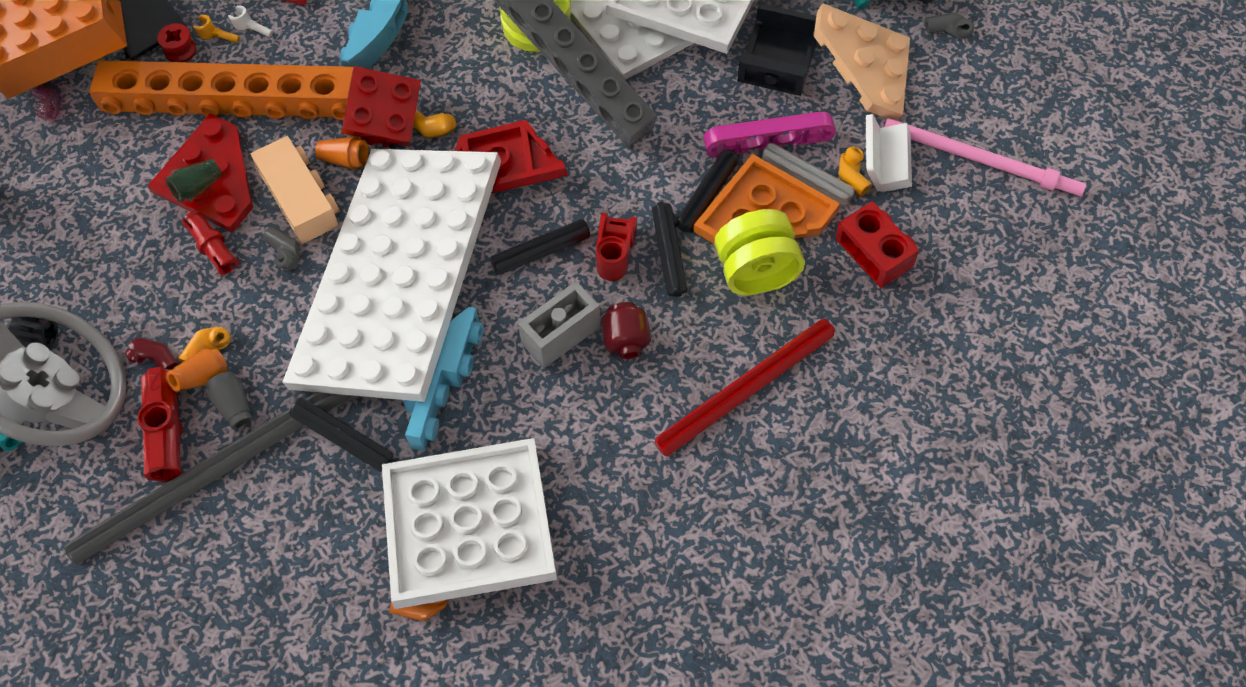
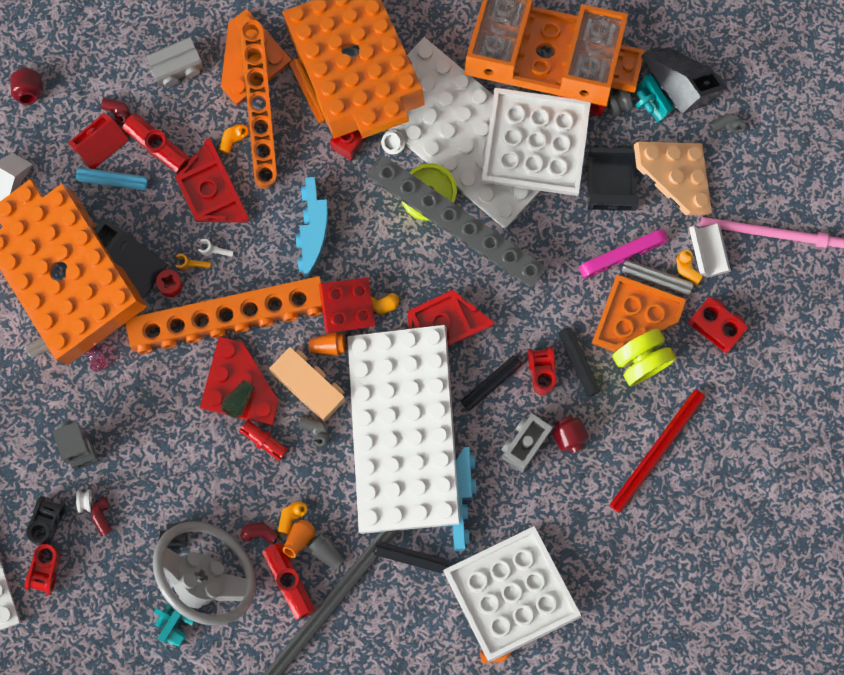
camera: 20 degrees left, 15 degrees up
(707, 190) = (592, 308): black axle -> none

